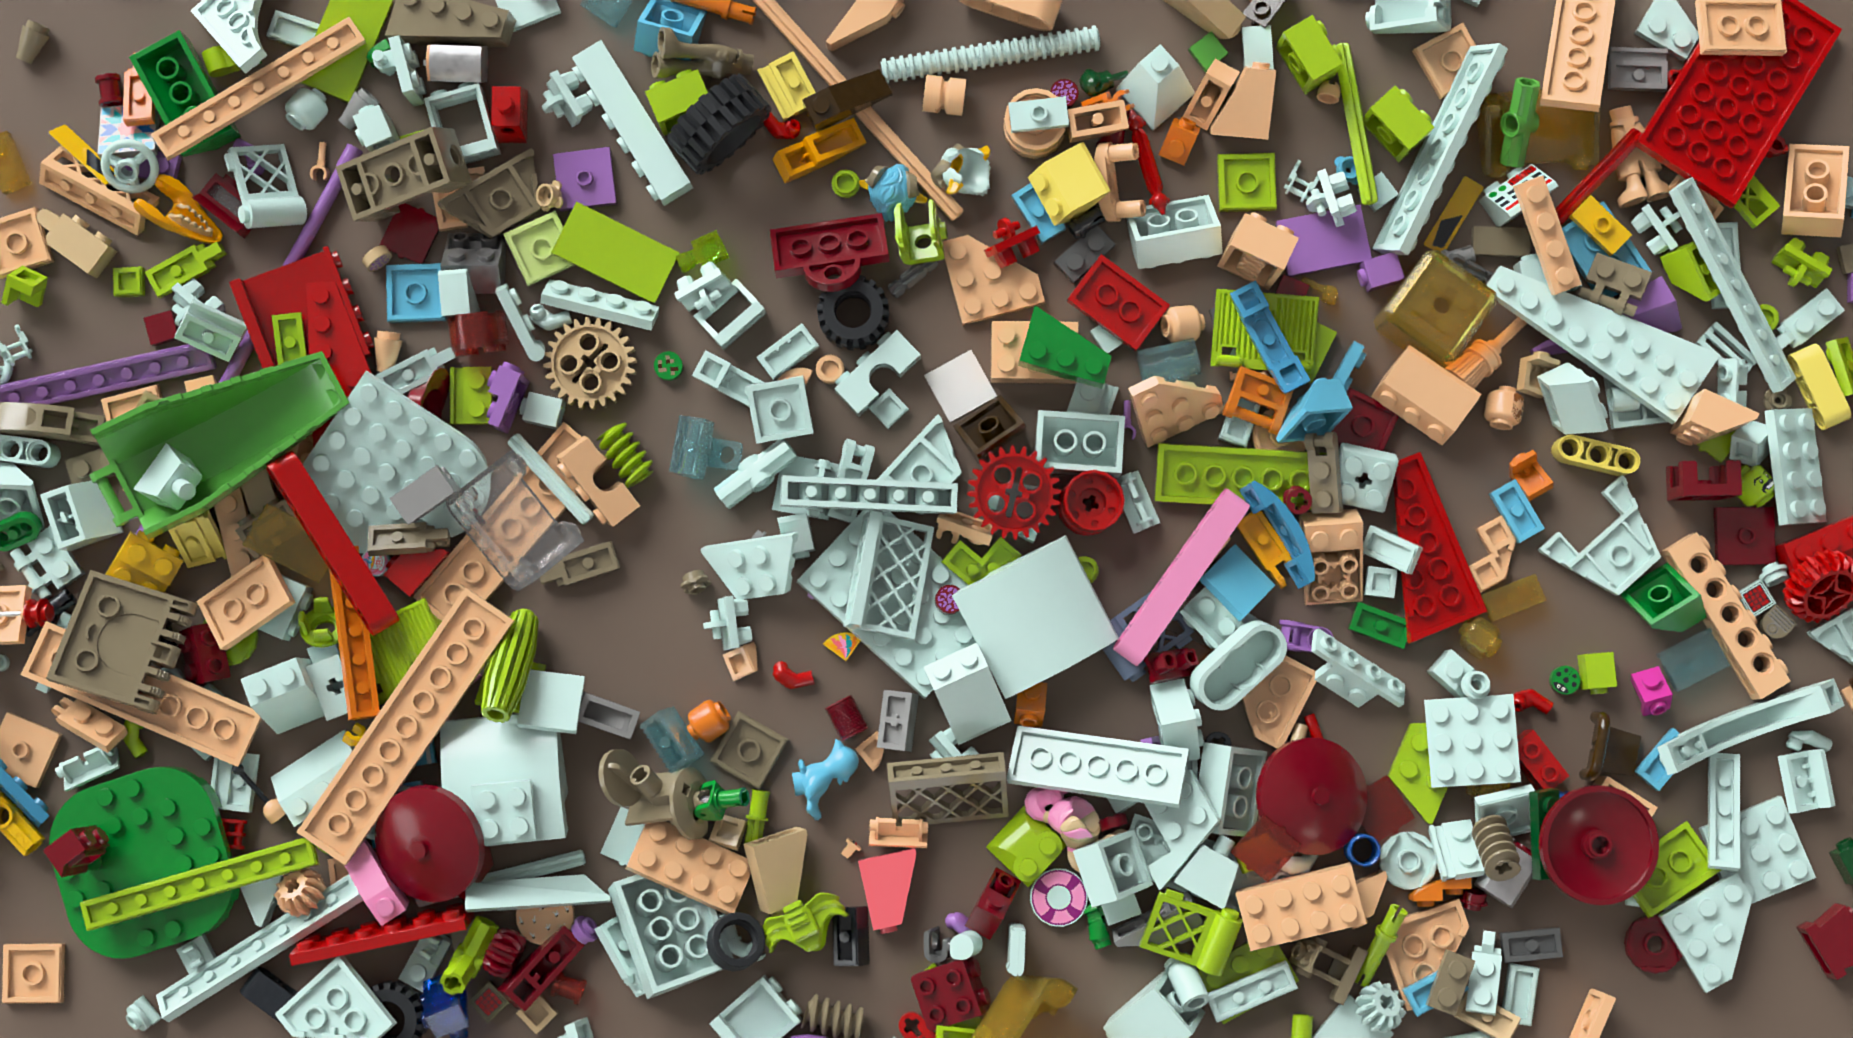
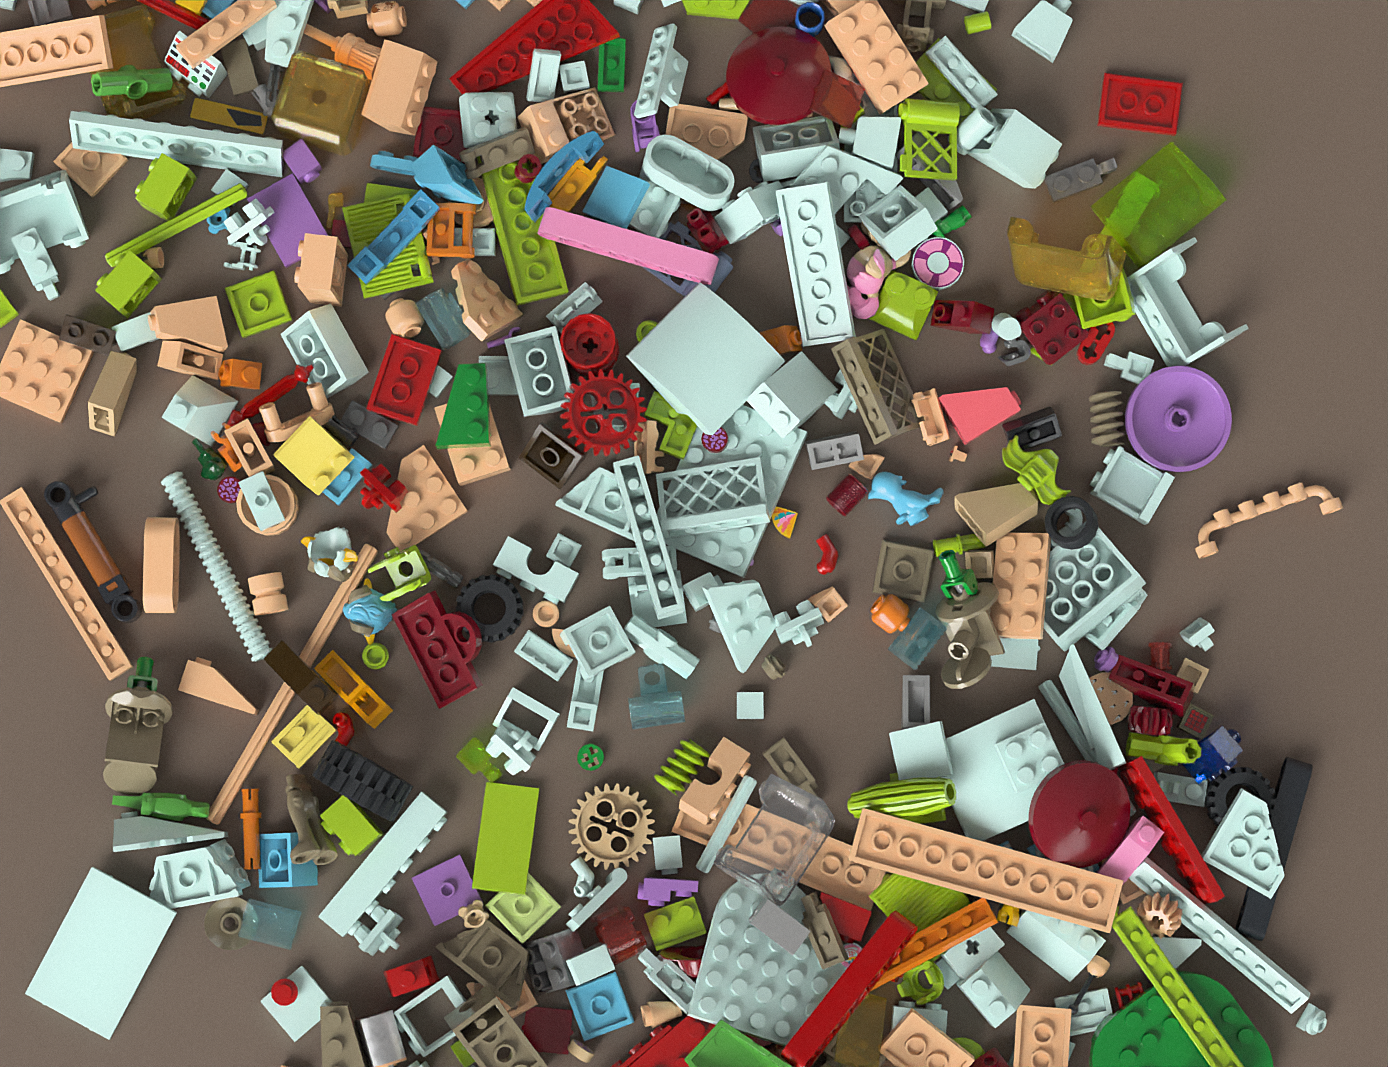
camera: 110 degrees left, 0 degrees up
(196, 953) = (1244, 991): light aqua tile -> none
(599, 304) = (556, 836): light aqua plate -> none
(665, 545) = (750, 705): none -> light aqua tile
(960, 385) = (522, 495): white sticker -> none
(1016, 949) = (994, 282): light aqua piece -> none
(1207, 50) = (151, 375): bright green tile -> none

